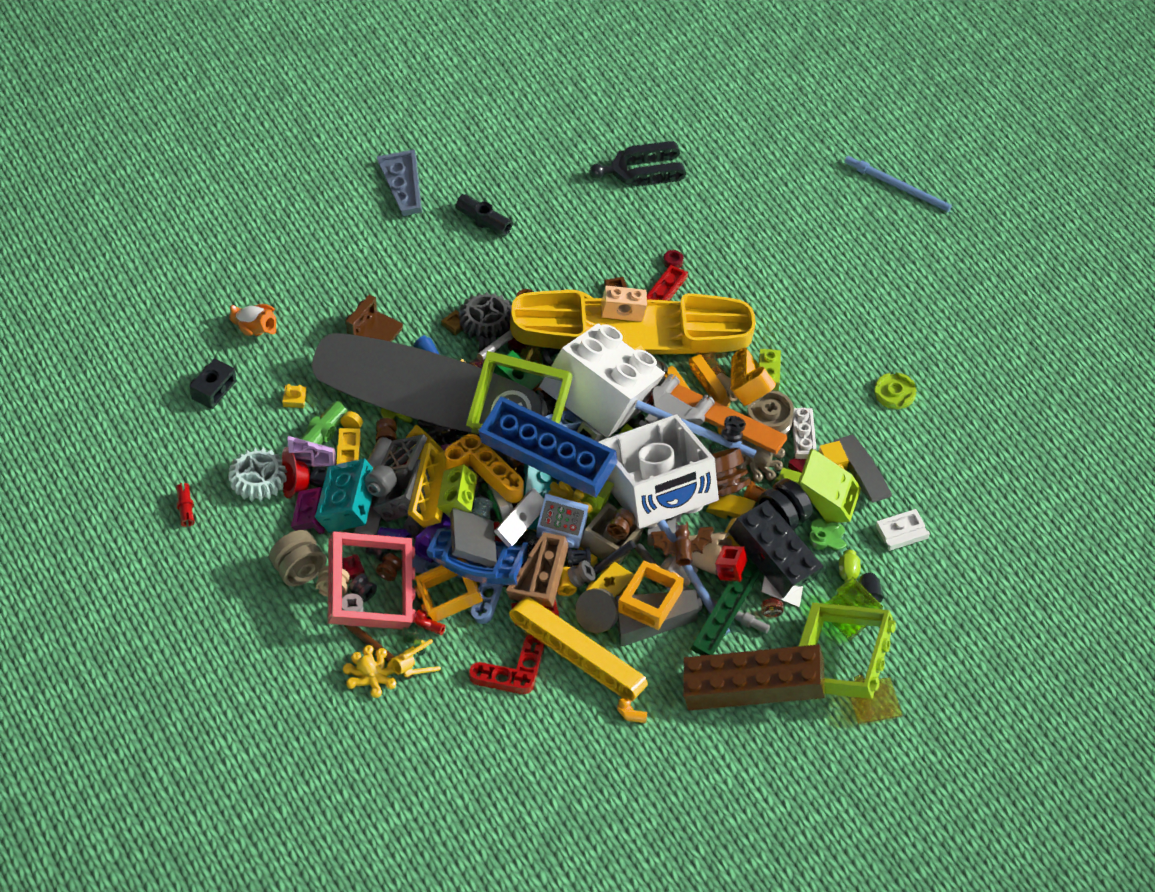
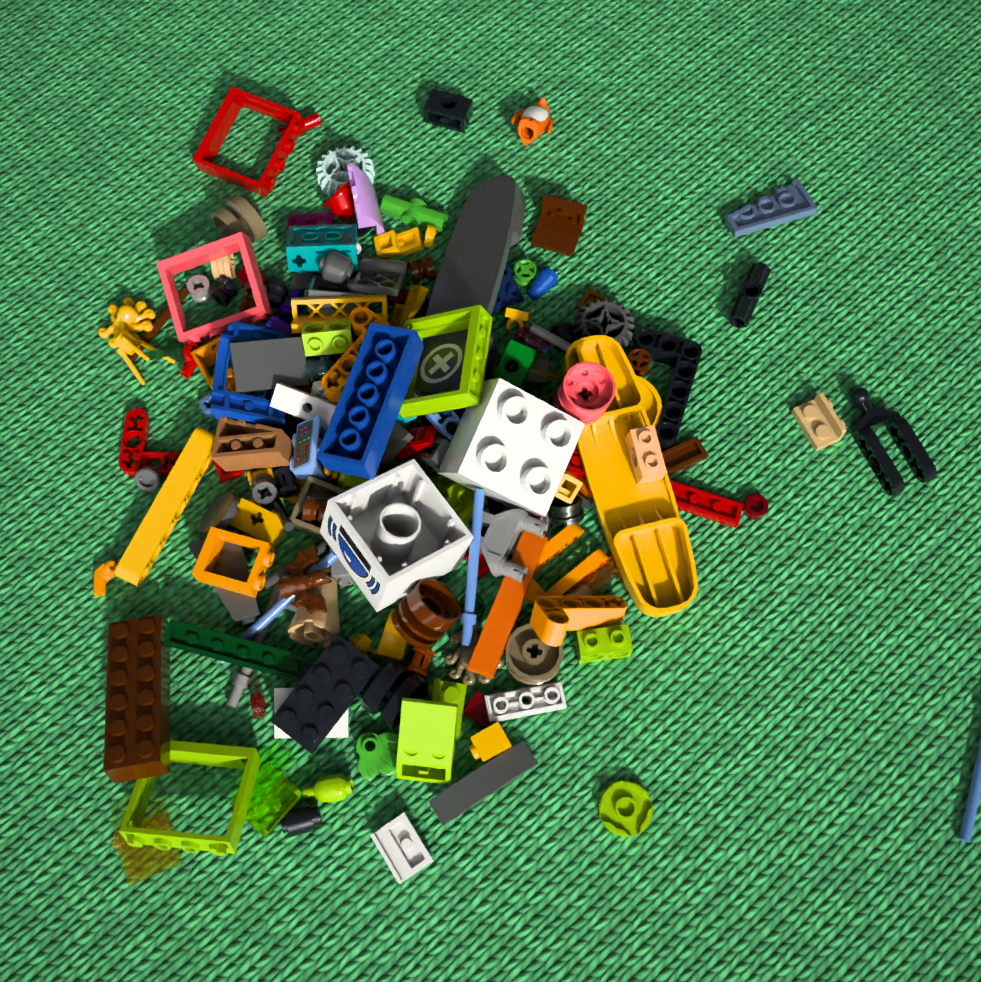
camera: 80 degrees right, 15 degrees up
(174, 565) = (221, 126): none -> red window
(294, 396) = (454, 182): yellow tile -> none
(544, 667) = (148, 478): none -> dark grey tile
(547, 274) = (681, 385): none -> black beam
(571, 314) = (591, 382): none -> coral wheel
(612, 201) = (819, 422): none -> tan bracket
(731, 563) = (291, 642): red brick -> none
(733, 428) = (485, 606): black wheel -> none

